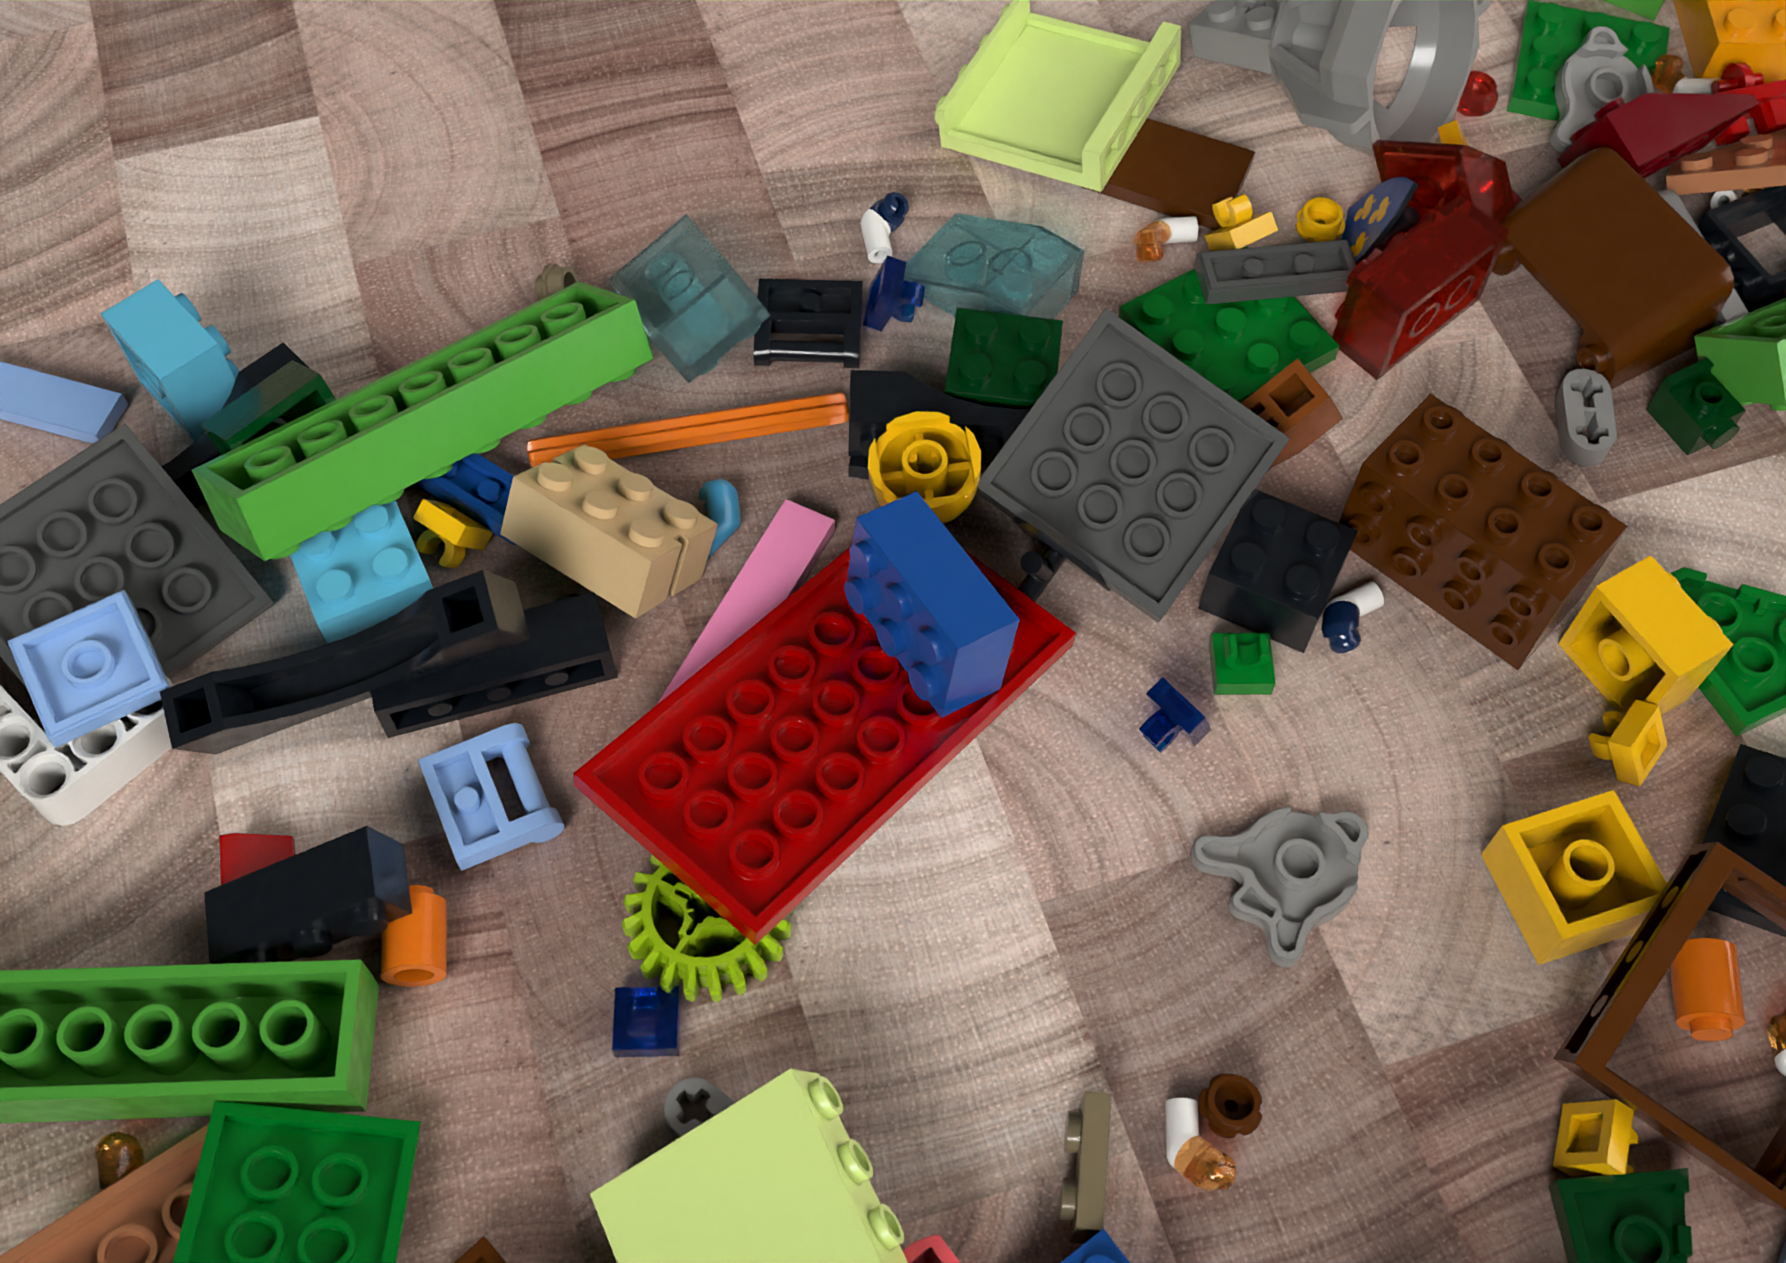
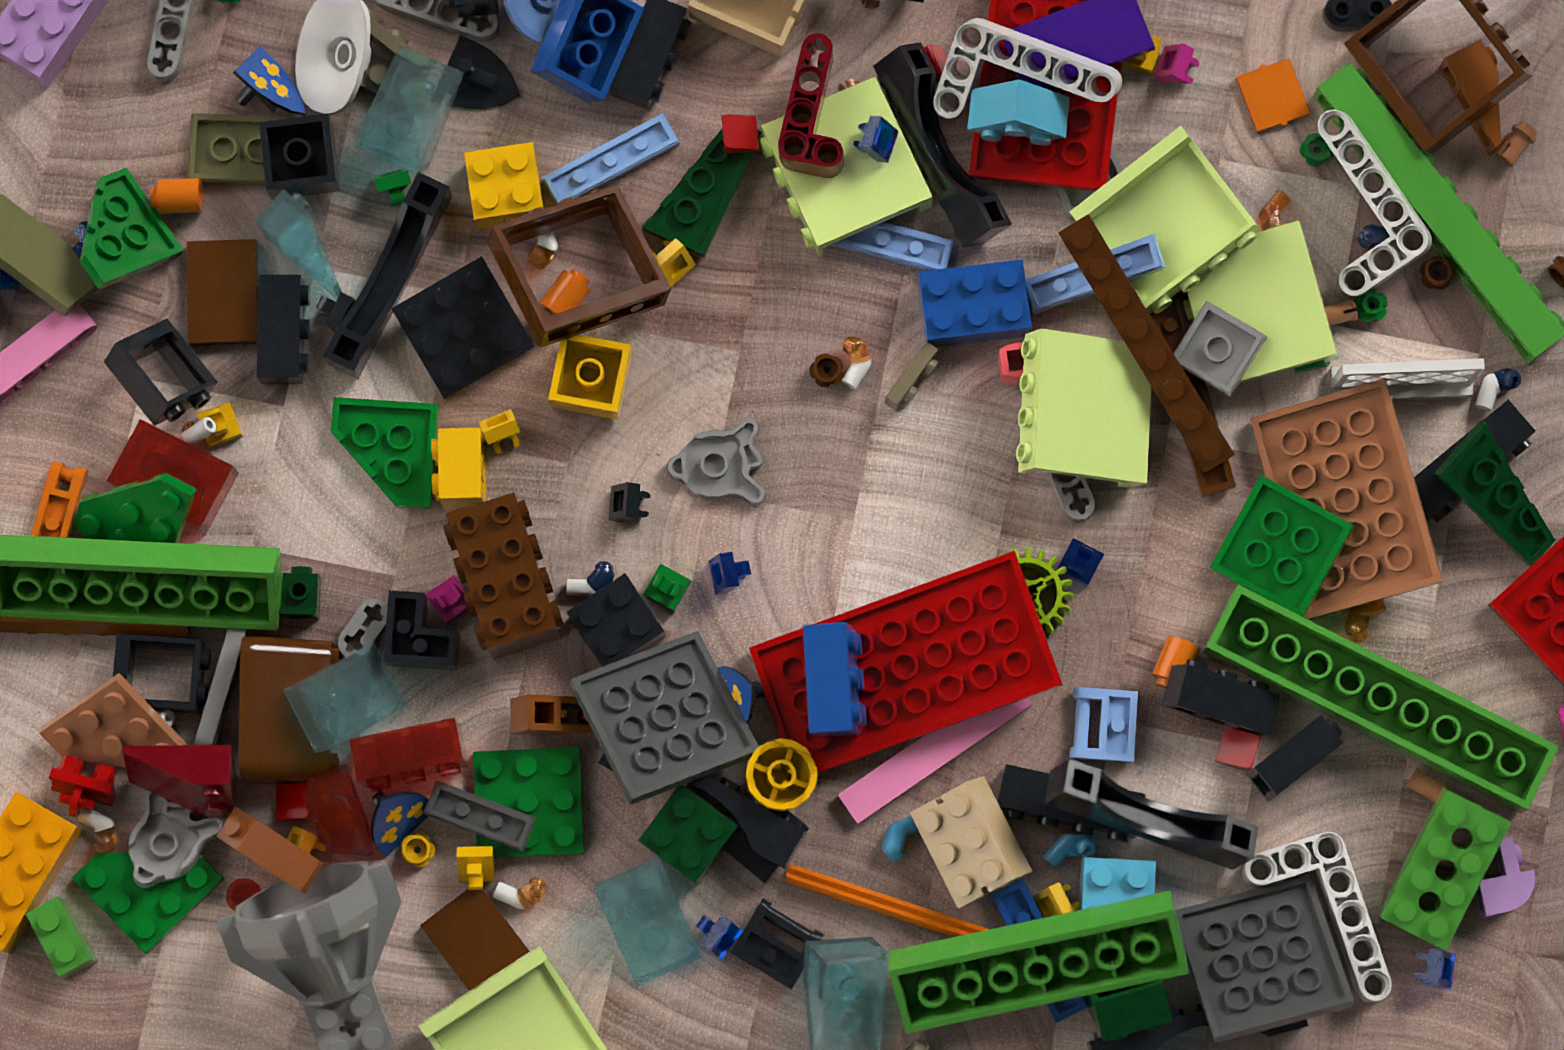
camera: 150 degrees left, 20 degrees up
(89, 668) = (1284, 897): light blue tile -> none
(143, 877) = (1296, 757): none -> black brick
(880, 223) = (691, 1001): arm -> none
(1385, 738) = (625, 502): none -> black tile
(1495, 115) = (270, 850): none -> dark orange slope
(1534, 415) = (410, 642): none -> black brick
(1547, 297) = (344, 698): none -> clear light blue slope

